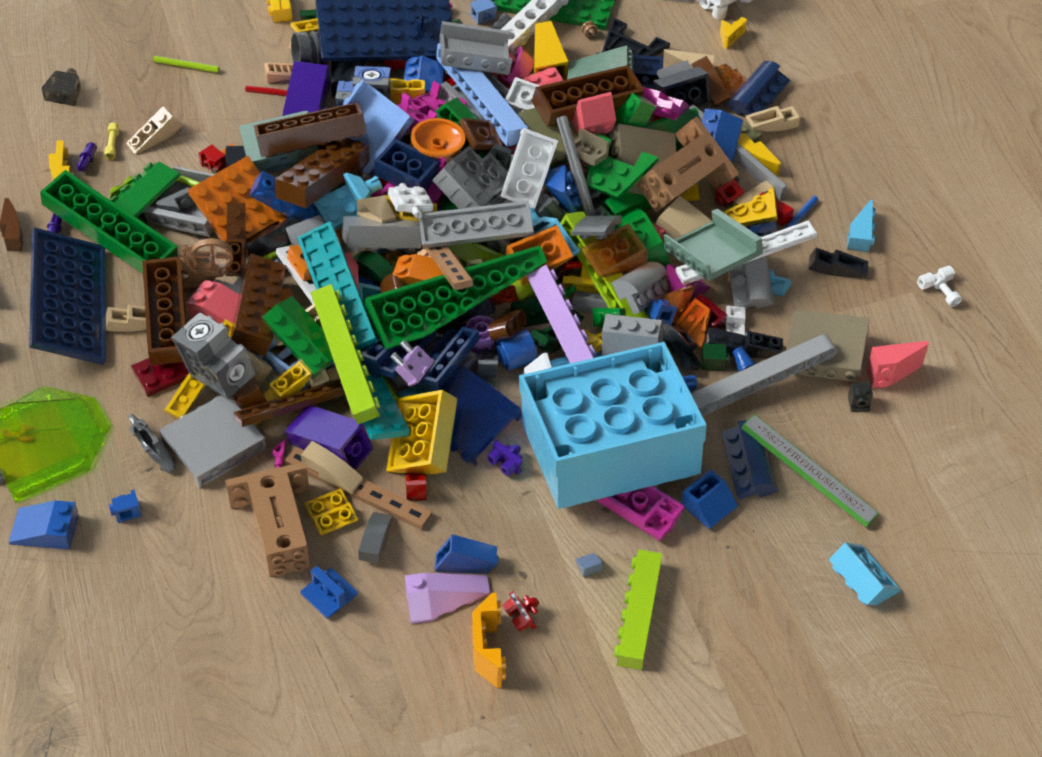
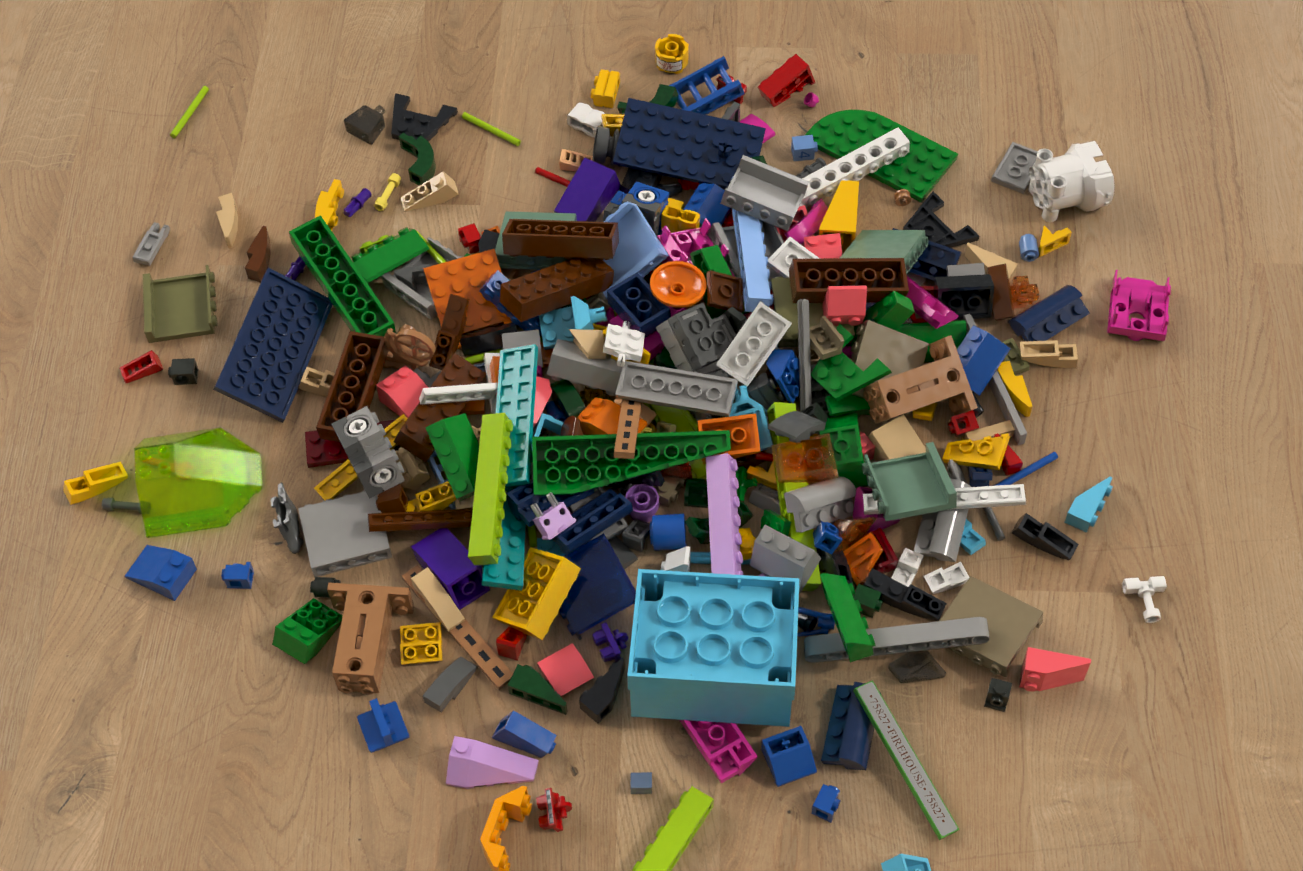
camera: 25 degrees right, 5 degrees up
(111, 79) = (417, 124): none -> black wing
(132, 98) = (425, 165): none -> dark green arch
(215, 491) = (320, 585): none -> pearl dark grey brick
(216, 533) = (306, 630): none -> green slope
(274, 34) = (585, 119): none -> white brick
(274, 284) = (458, 393): none -> white tile
(279, 455) = (400, 568): dark pink hand -> none
(456, 516) = (531, 686): none -> dark green slope
(476, 493) = (565, 670): none -> coral slope
(507, 325) = (667, 503): reddish brown beam -> none
(520, 503) = (601, 697): none -> black slope
(709, 369) = (847, 616): none -> green slope
(715, 42) = (1028, 248): none -> medium blue brick
(742, 359) = (893, 614): blue cone -> none
(758, 528) = (826, 803): none -> blue brick
(773, 320) = (946, 579): none -> white slope
(781, 396) = (916, 667): none -> clear smoke wing
(791, 266) = (994, 523): none -> dark grey bar
(826, 57) = (1143, 298): none -> dark pink piece

